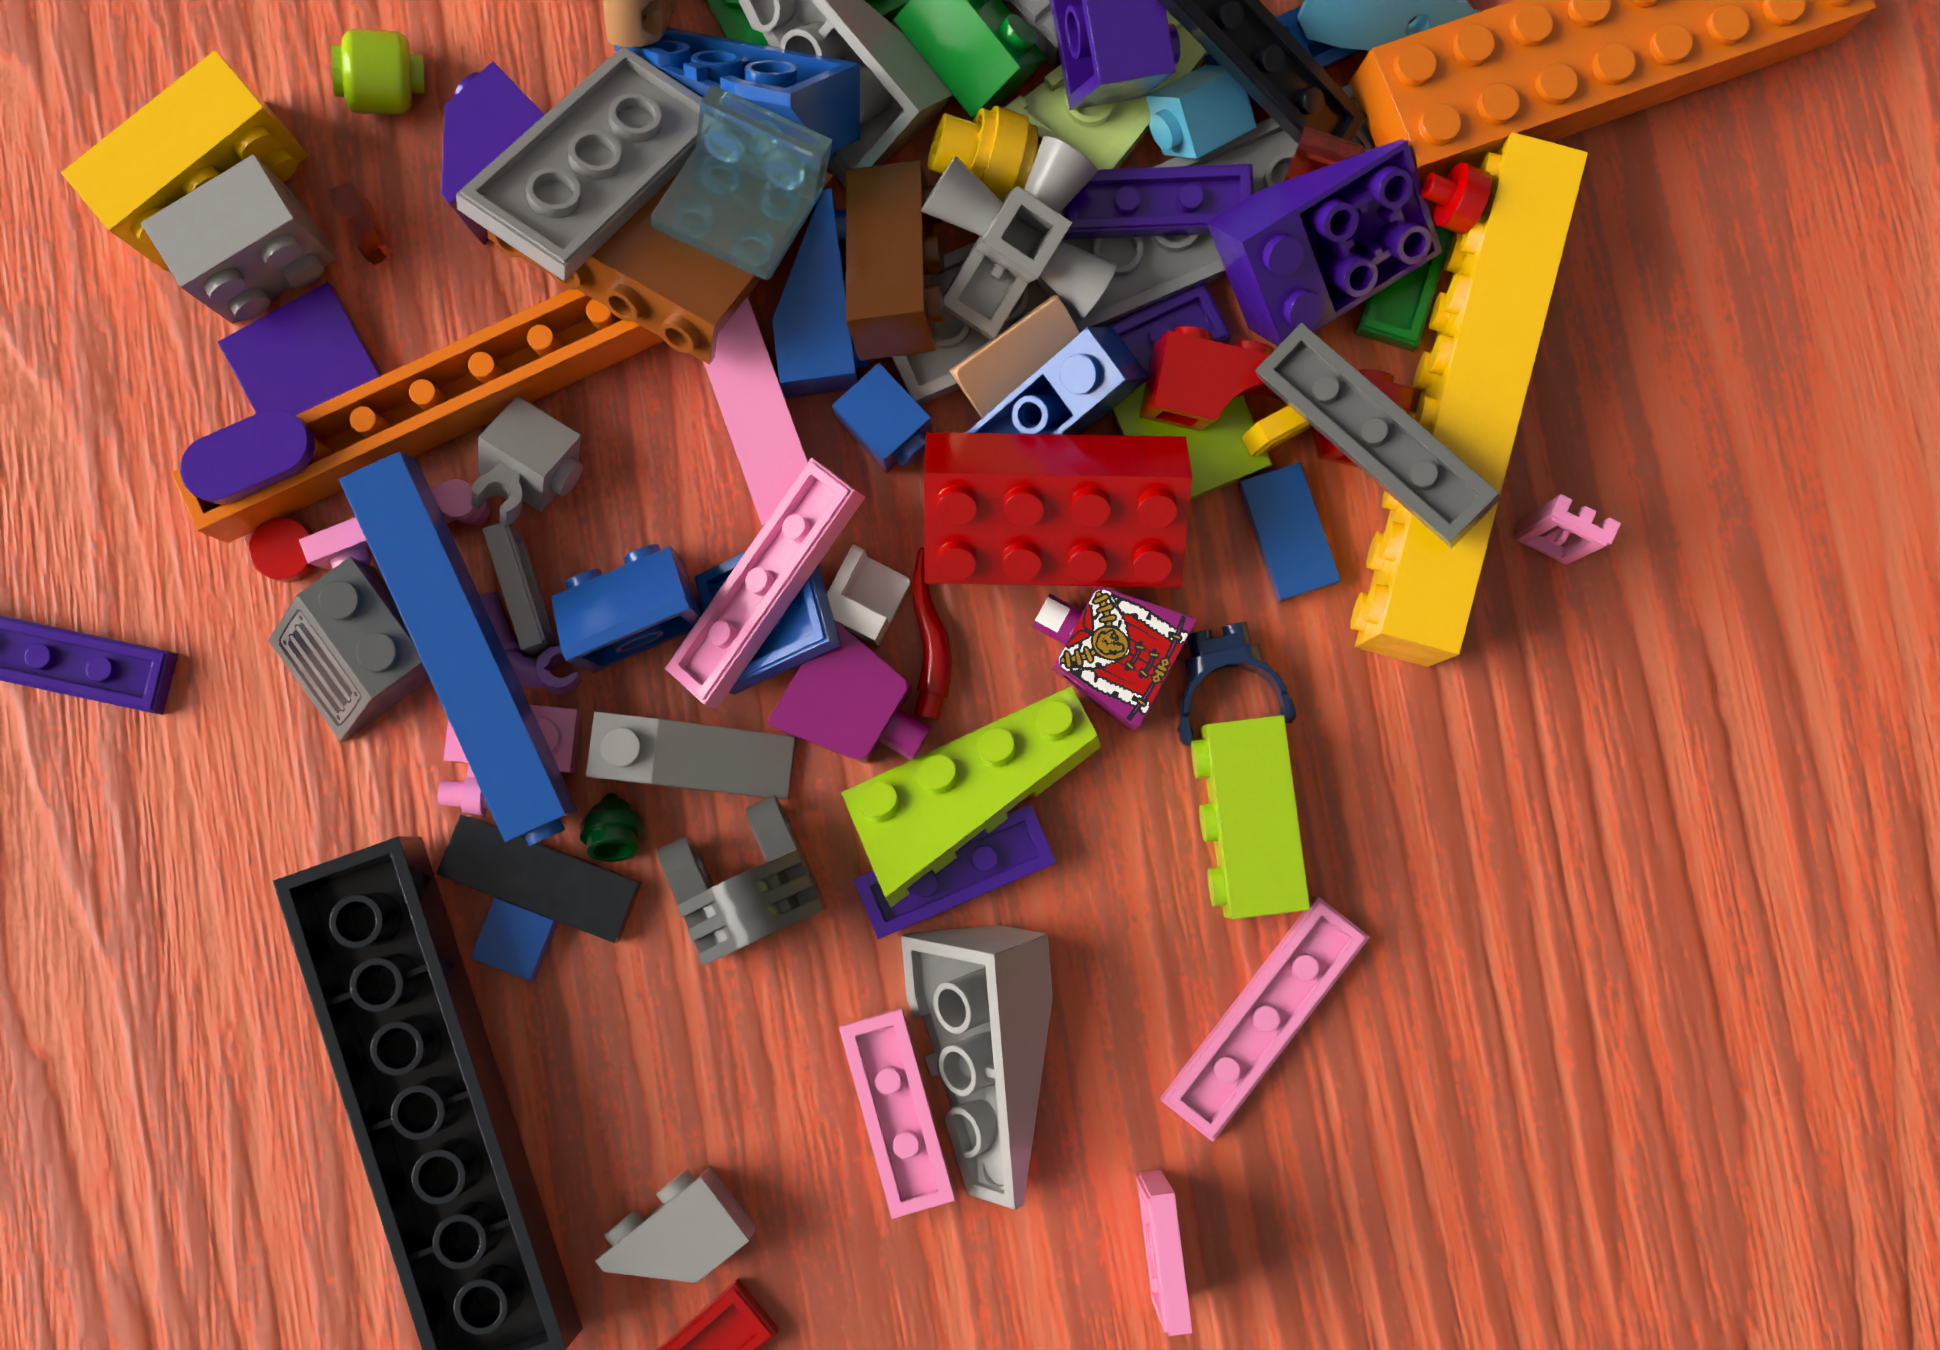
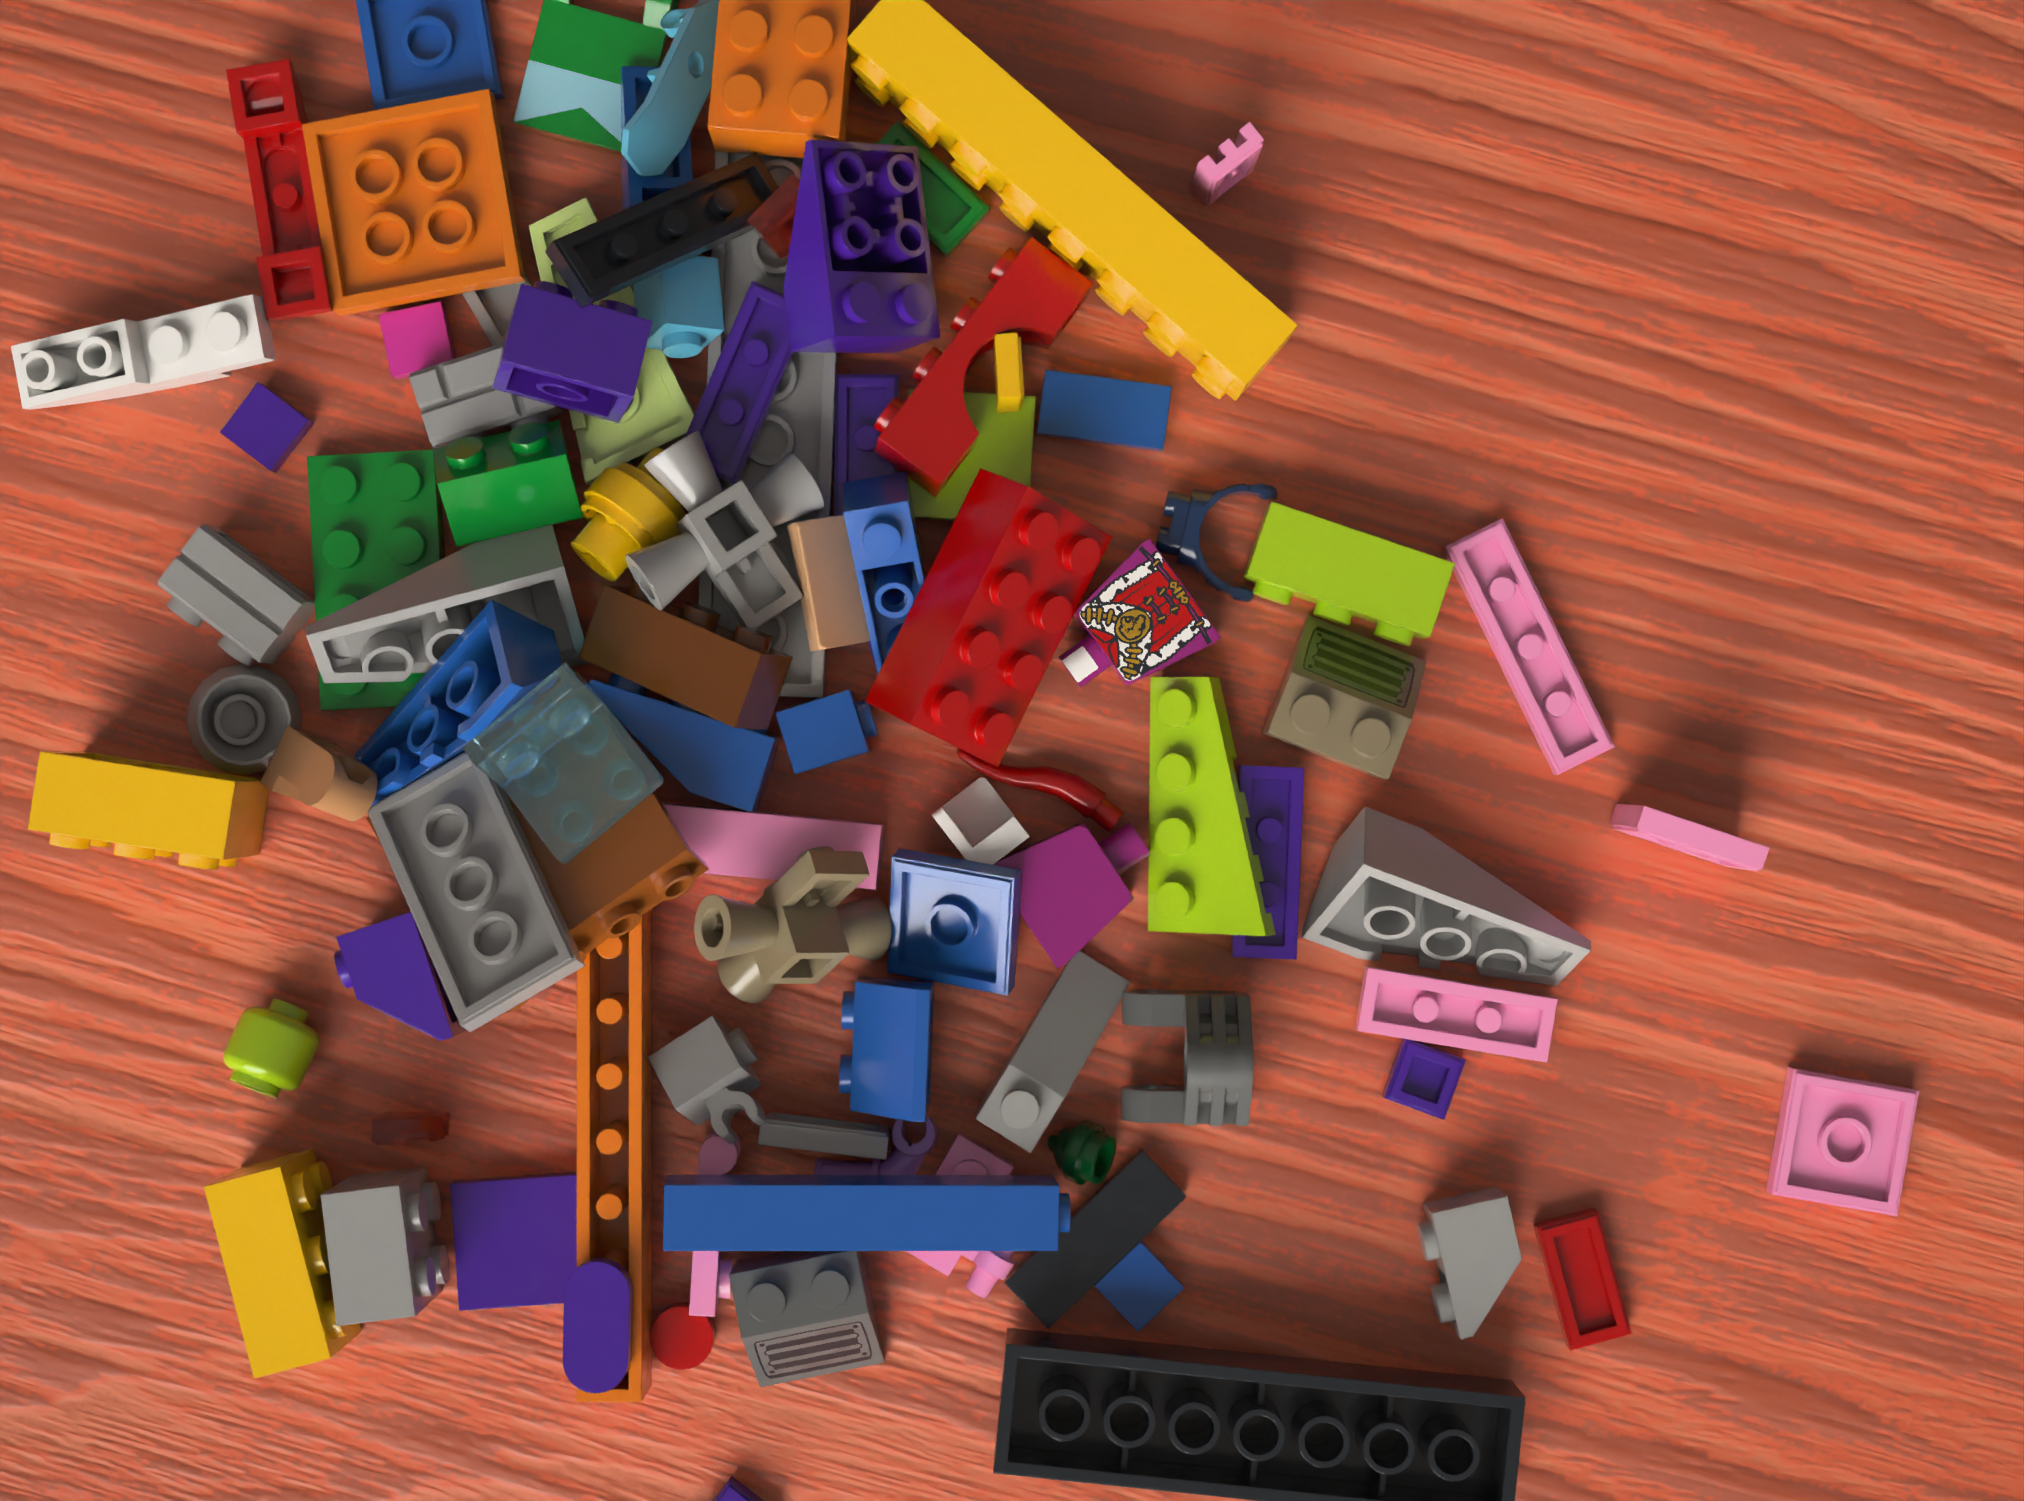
camera: 70 degrees left, 5 degrees up
(693, 464) = (795, 927): none -> dark tan brick
(764, 583) = (931, 911): bright pink tile -> none
(824, 1111) = (1423, 1078): none -> dark purple tile
(1137, 871) = (1346, 698): none -> dark tan slope
(1378, 435) = (1067, 301): dark grey plate -> none
(1458, 197) = (881, 114): red tile -> none

